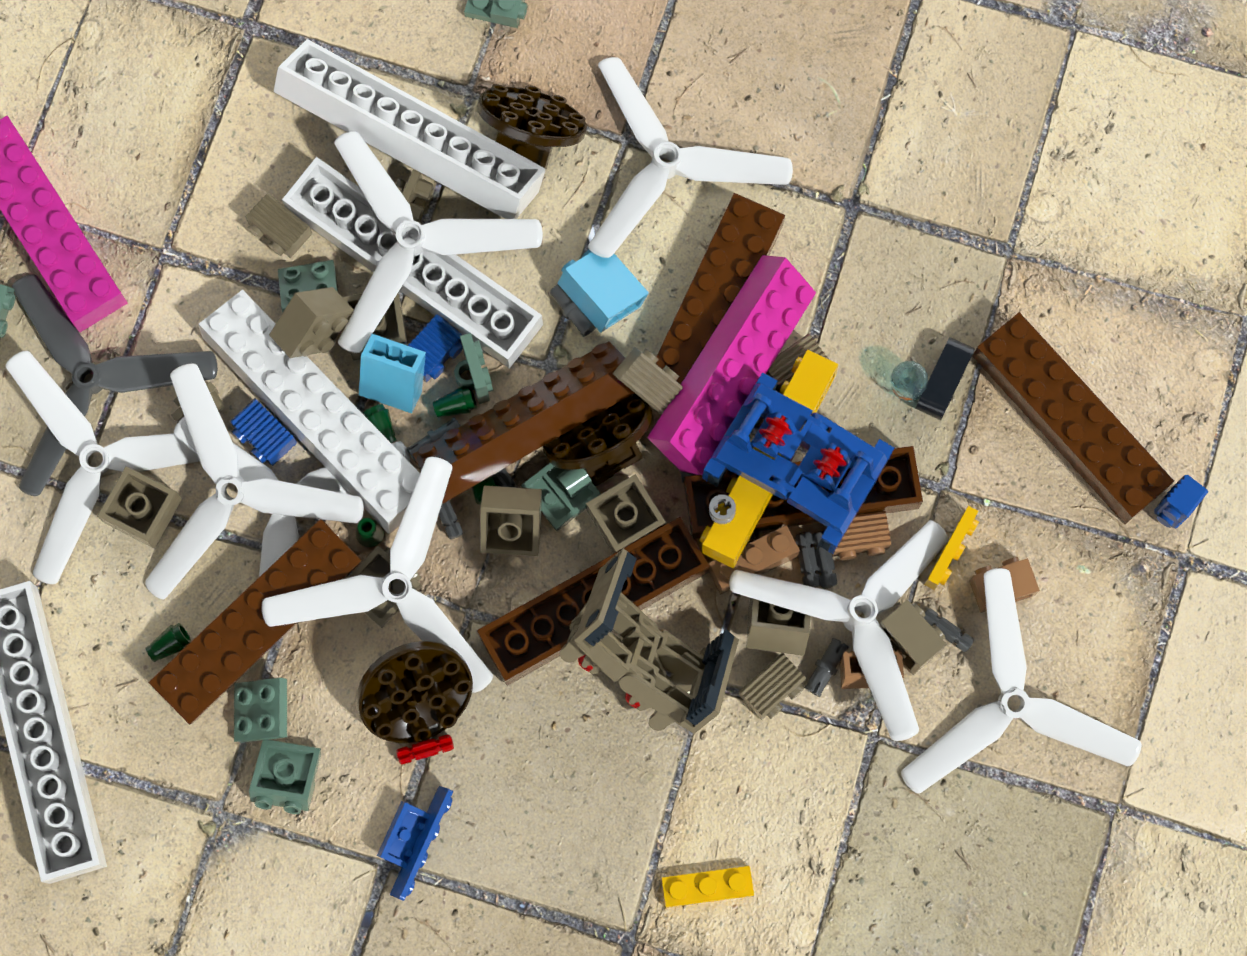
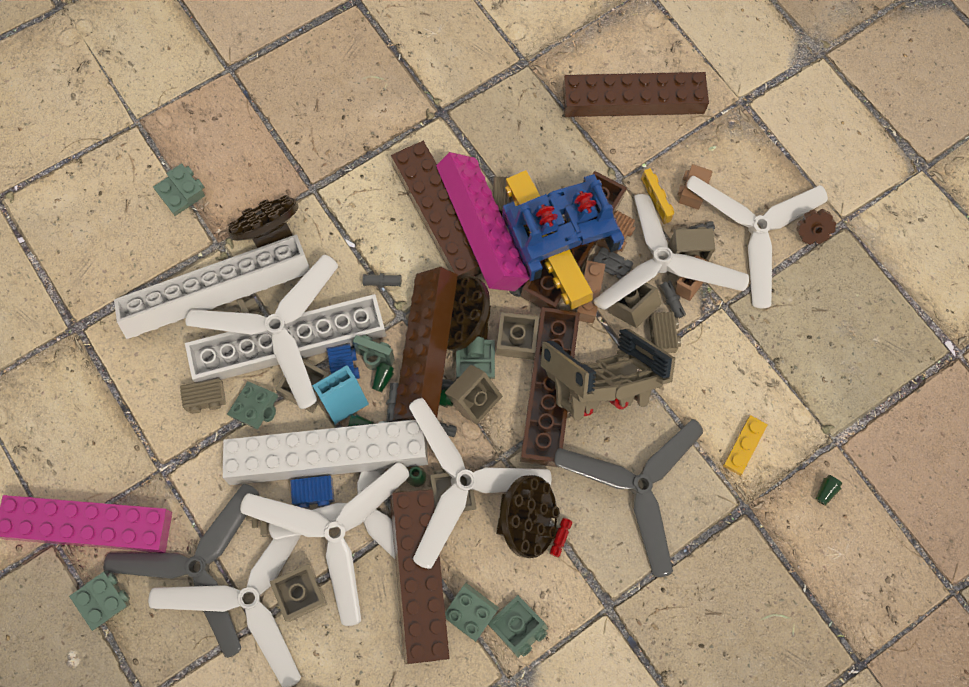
camera: 55 degrees left, 5 degrees down
(168, 642) = (389, 637): dark green cone -> none
(311, 322) = (277, 414): dark tan brick -> none
(410, 837) = (607, 582): blue bracket -> none
(536, 819) = (645, 504): none -> dark grey piece
(602, 289) = (383, 255): medium azure brick -> none
(647, 379) = (458, 264): dark tan brick -> none
(691, 162) = (343, 176): white piece -> none
(722, 499) = (561, 284): light grey bush -> none
(914, 374) = (556, 150): clear light blue head -> none
(945, 378) = (567, 135): black beam -> none
(1070, 773) = (816, 226): none -> reddish brown plant
(1180, 502) = (717, 77): blue brick -> none

